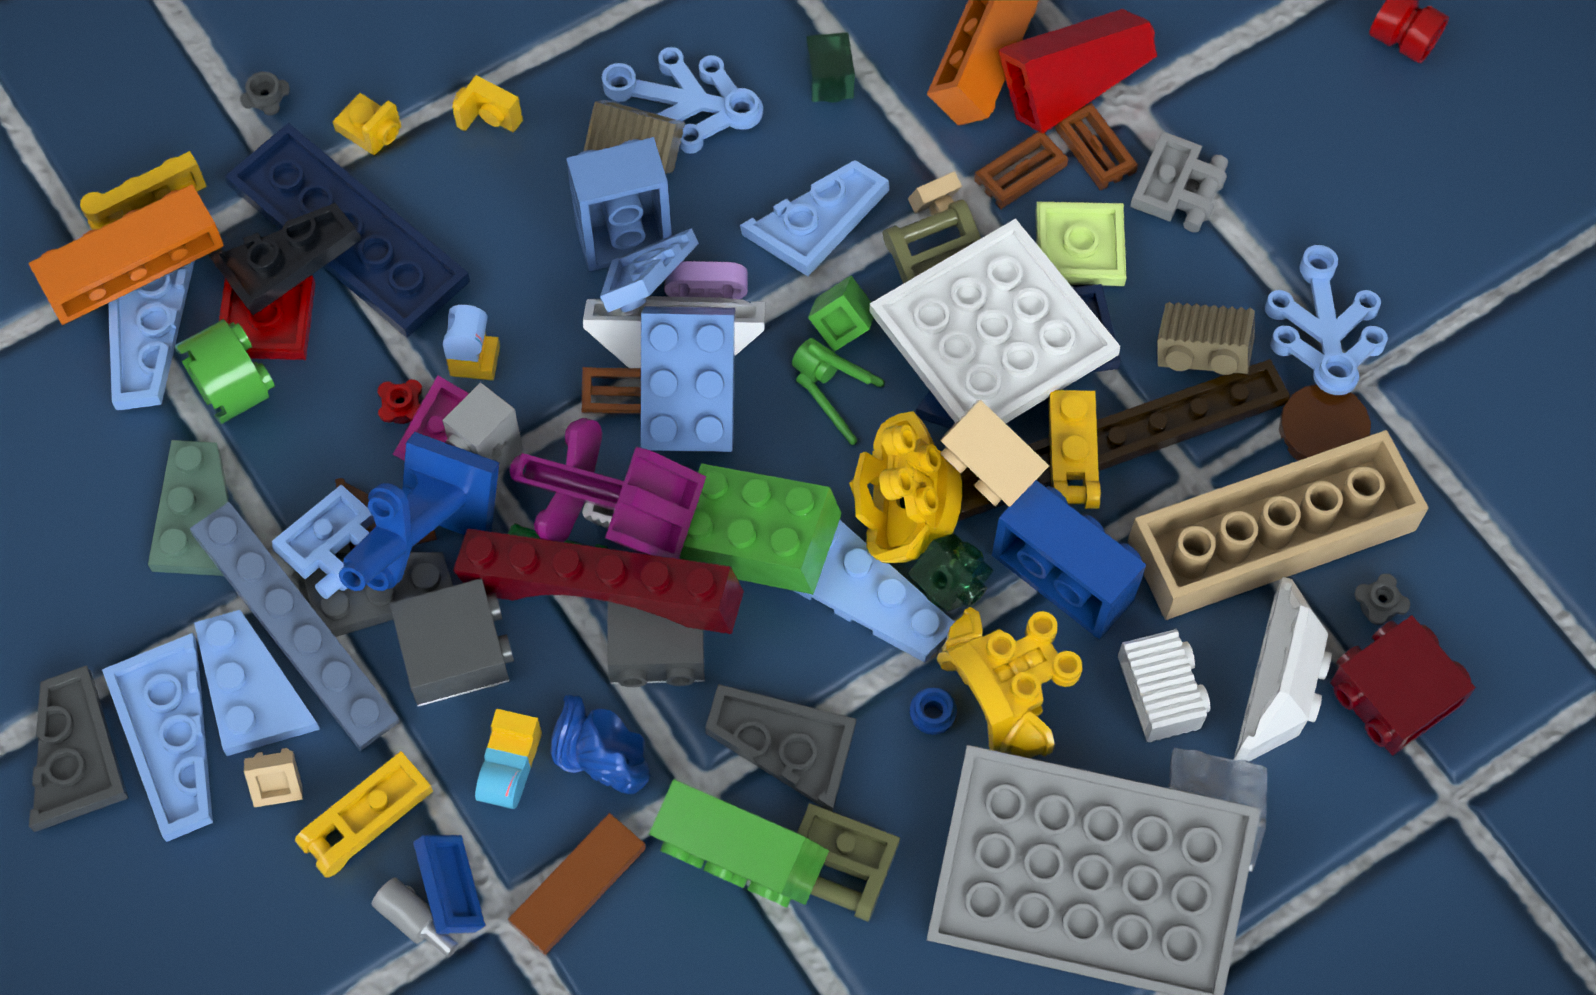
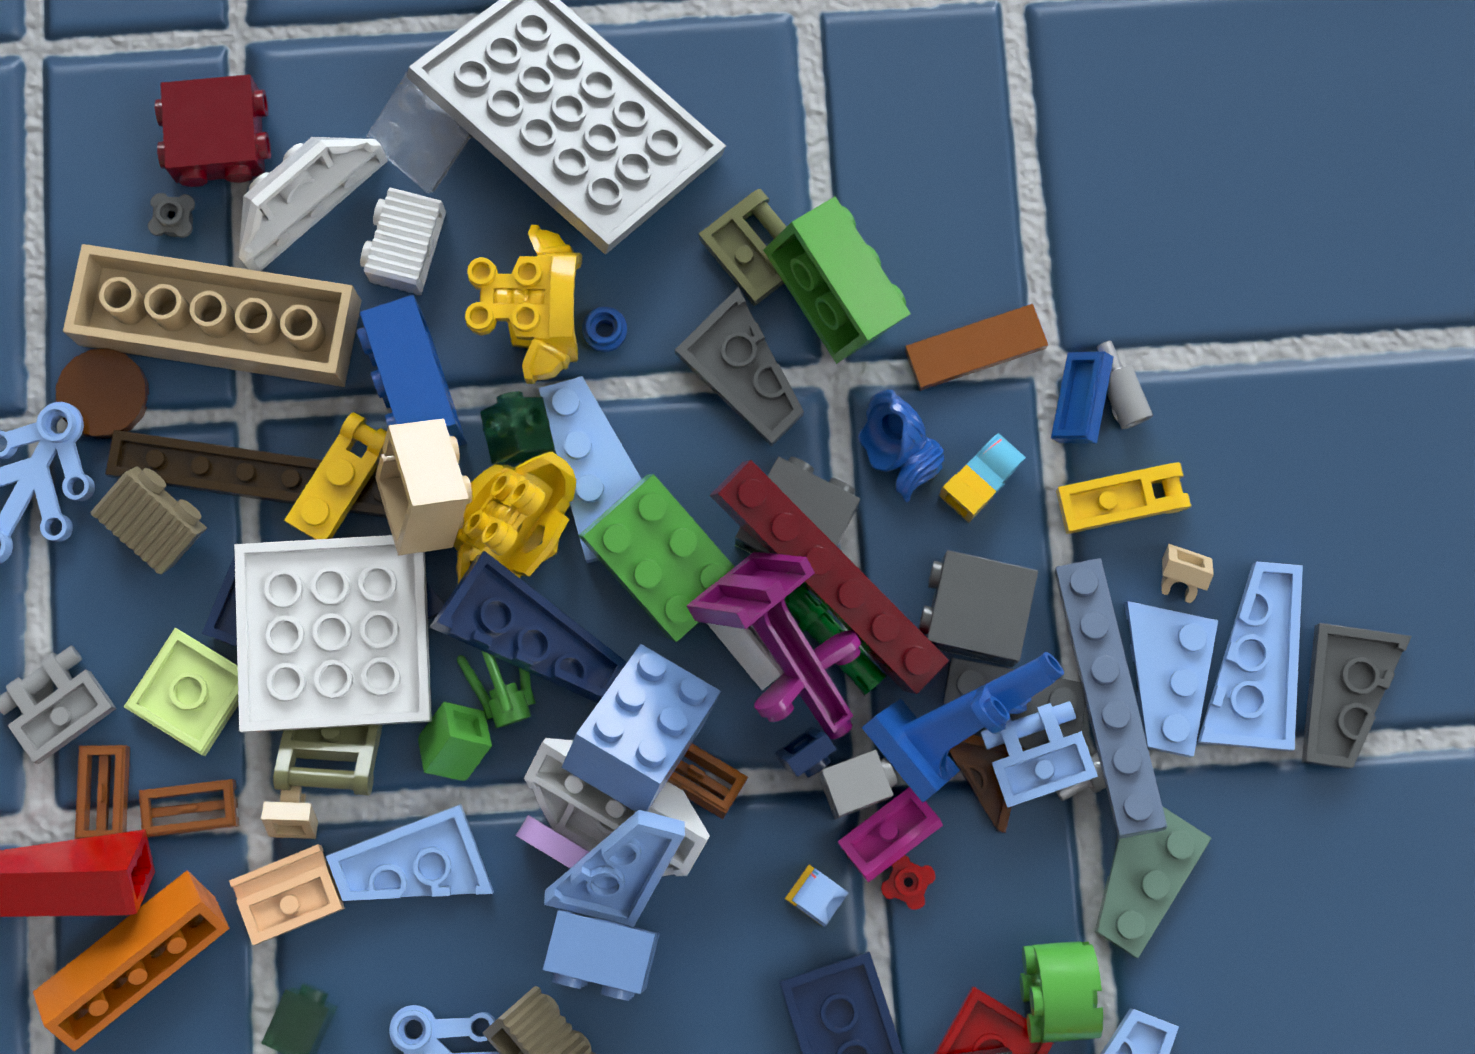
camera: 150 degrees left, 15 degrees up
(539, 431) = (806, 753): none -> dark blue plate
(831, 405) = (520, 626): none -> dark blue wing
(902, 144) = (287, 894): none -> light nougat plate

